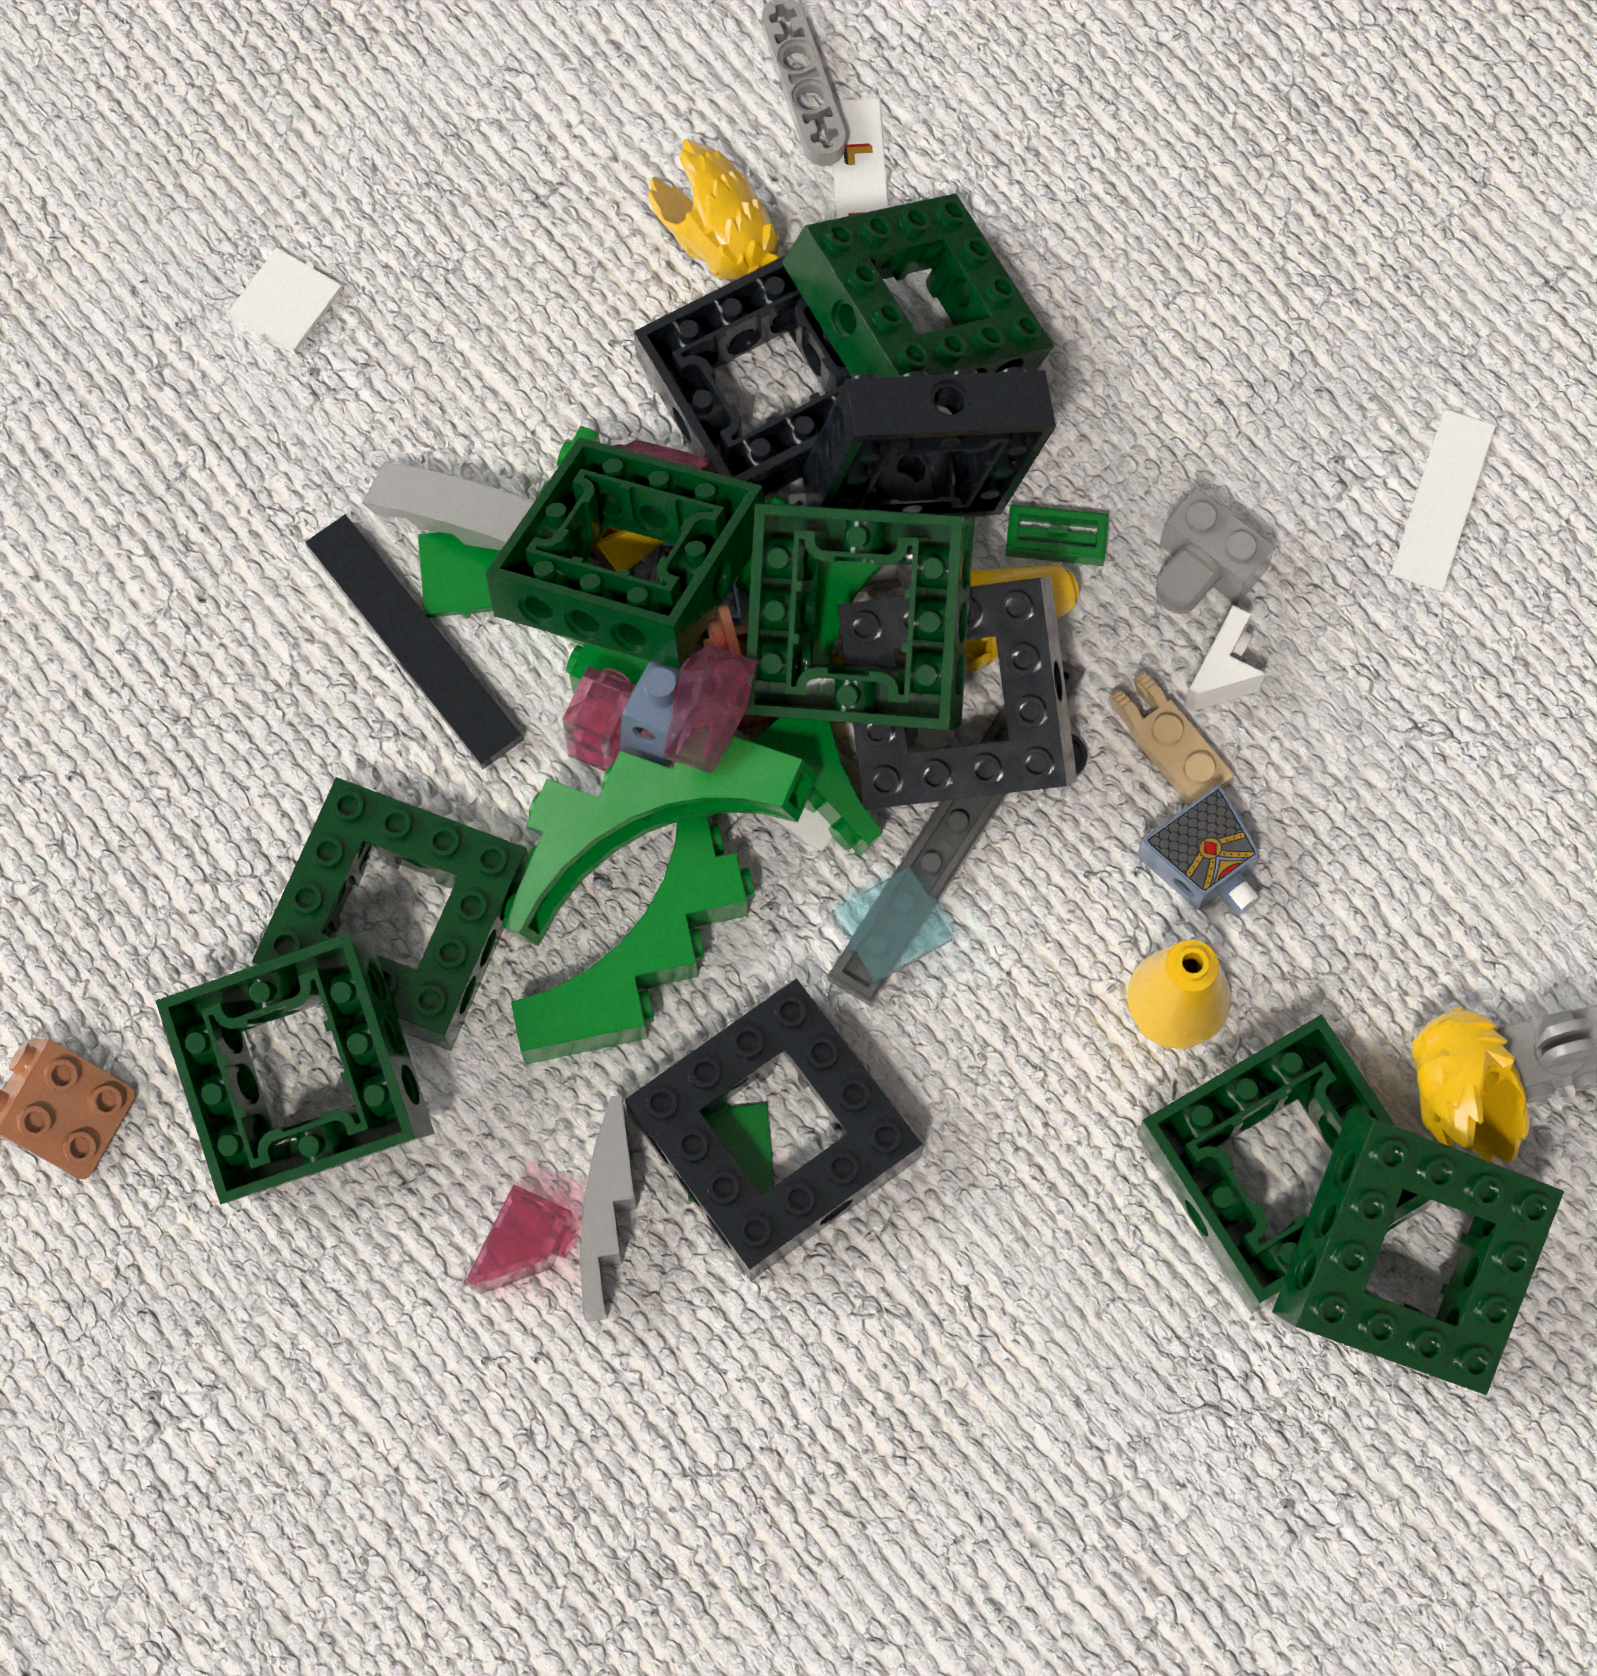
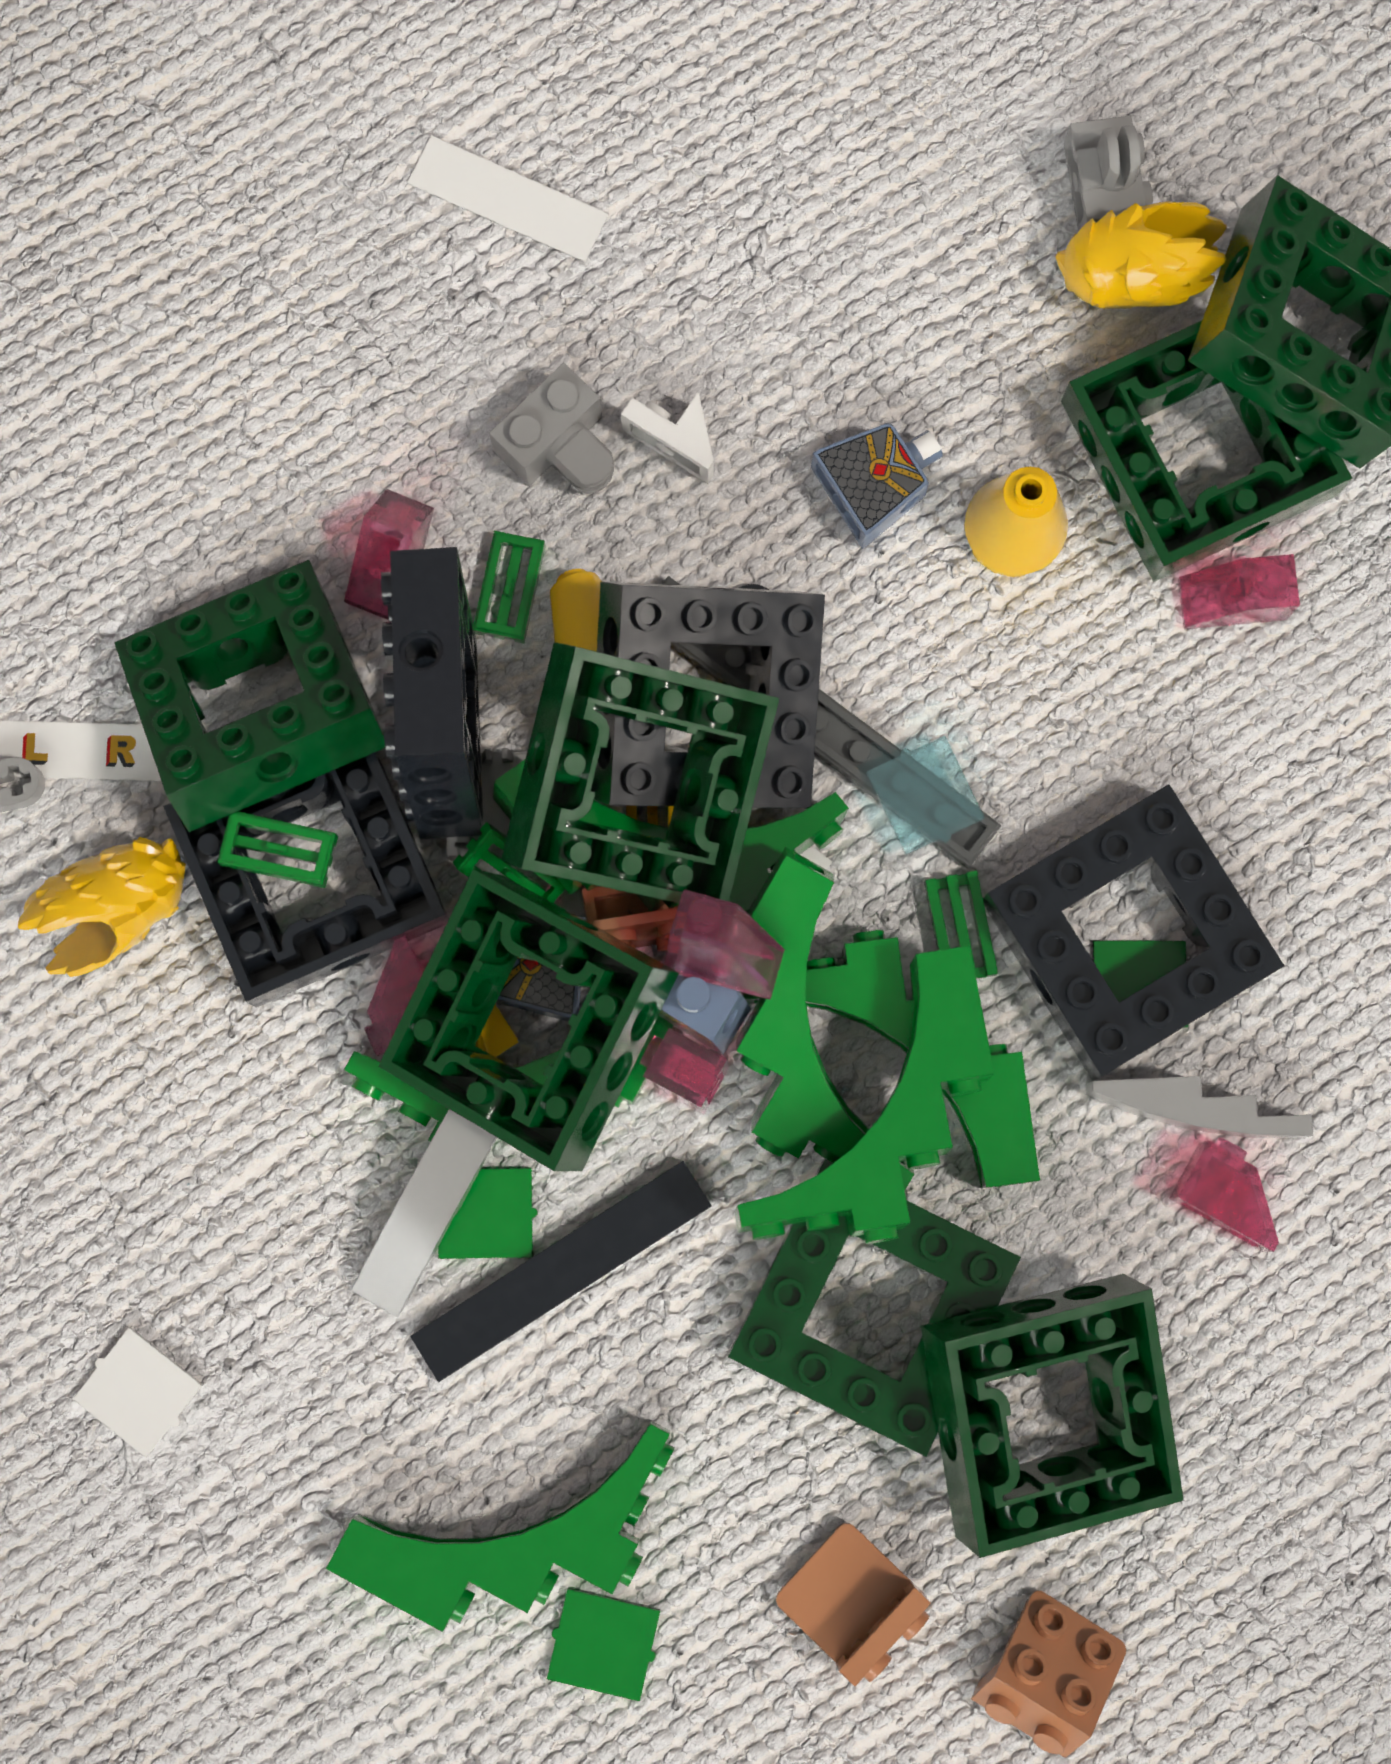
camera: 85 degrees left, 10 degrees up
(75, 710) = (603, 1644): none -> green piece
(118, 920) = (853, 1603): none -> nougat bracket
(130, 559) = (432, 1573): none -> green arch
(635, 938) = (866, 1183): none -> green arch
(759, 955) = (953, 883): none -> green tile
(769, 376) = (322, 859): none -> green tile
(1088, 421) = (388, 526): none -> clear pink slope
(1133, 1217) = (1240, 592): none -> clear pink slope
(1171, 742) = (751, 497): tan hinge -> none

